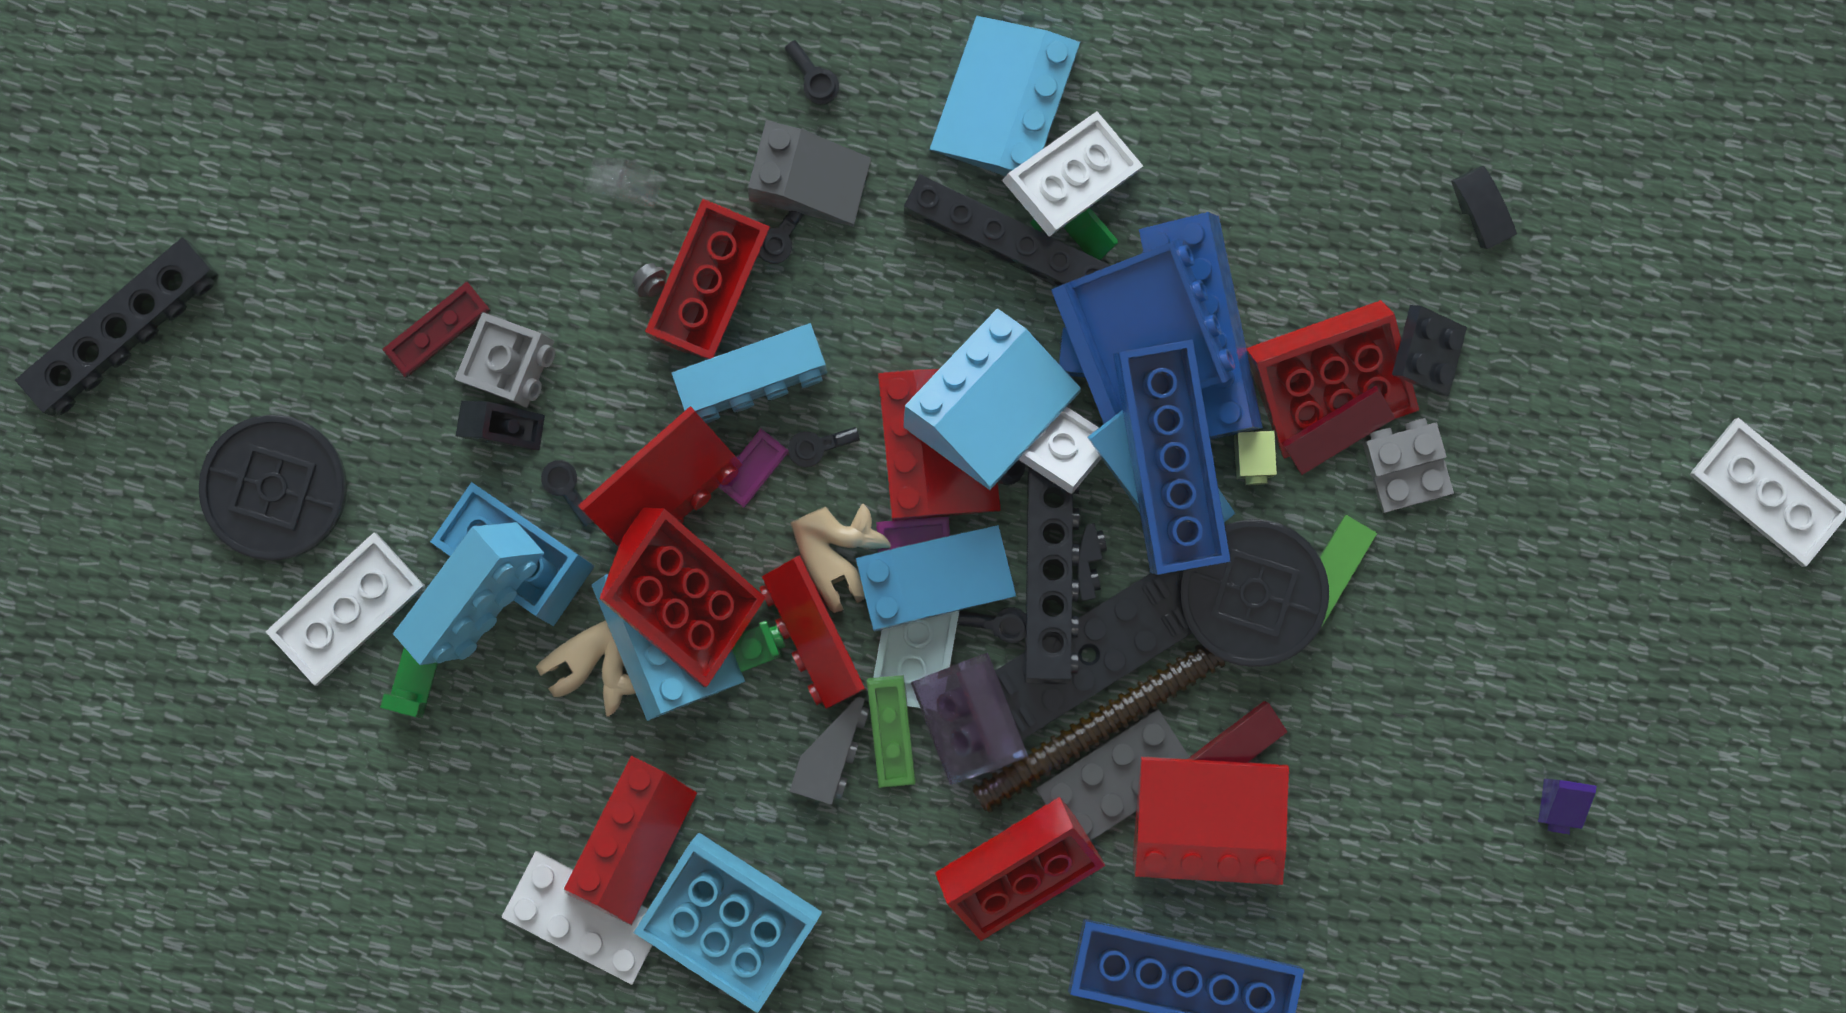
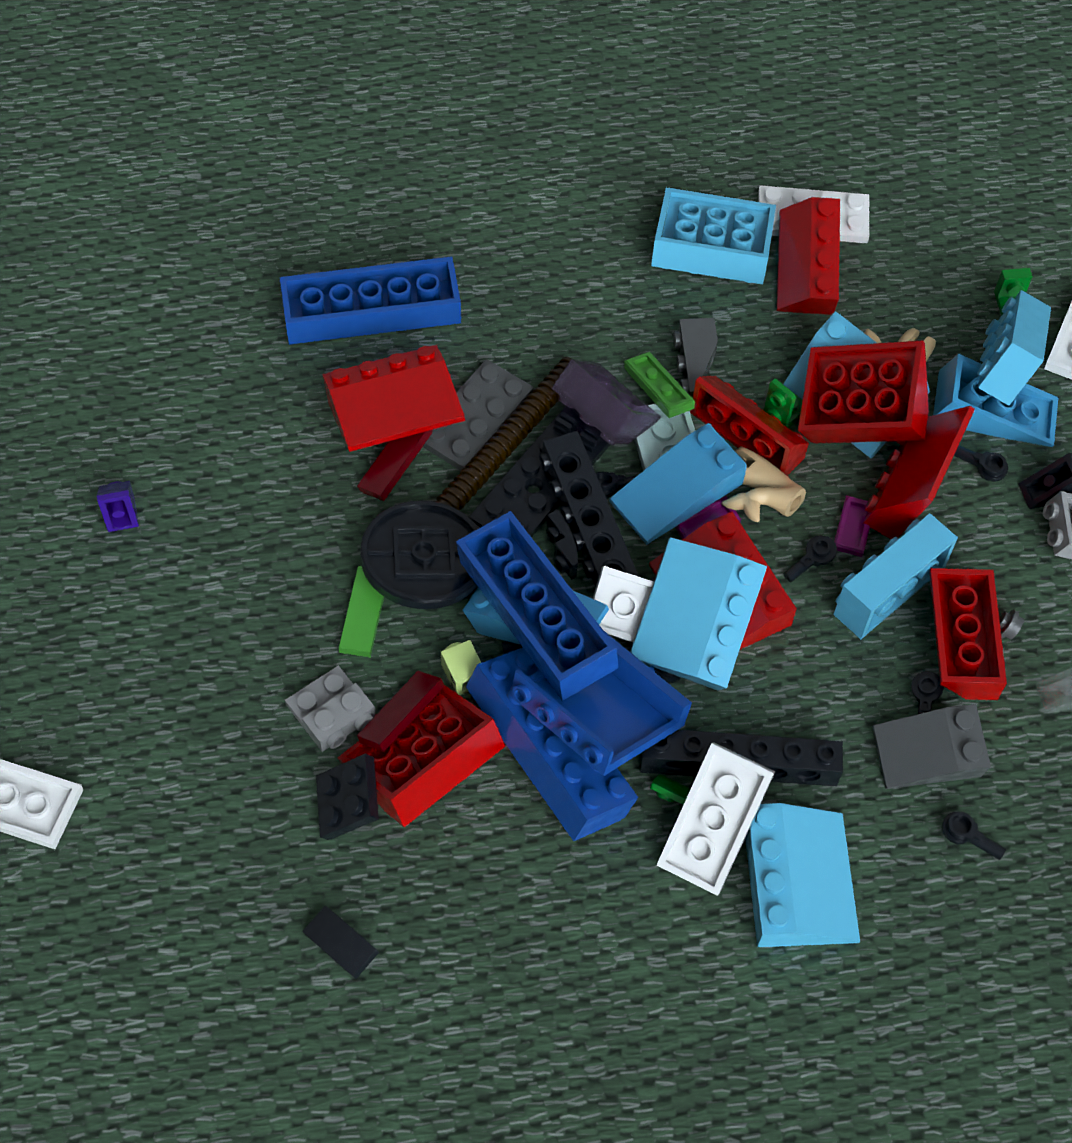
camera: 160 degrees right, 25 degrees down
(1019, 869) = (524, 328): red slope -> none

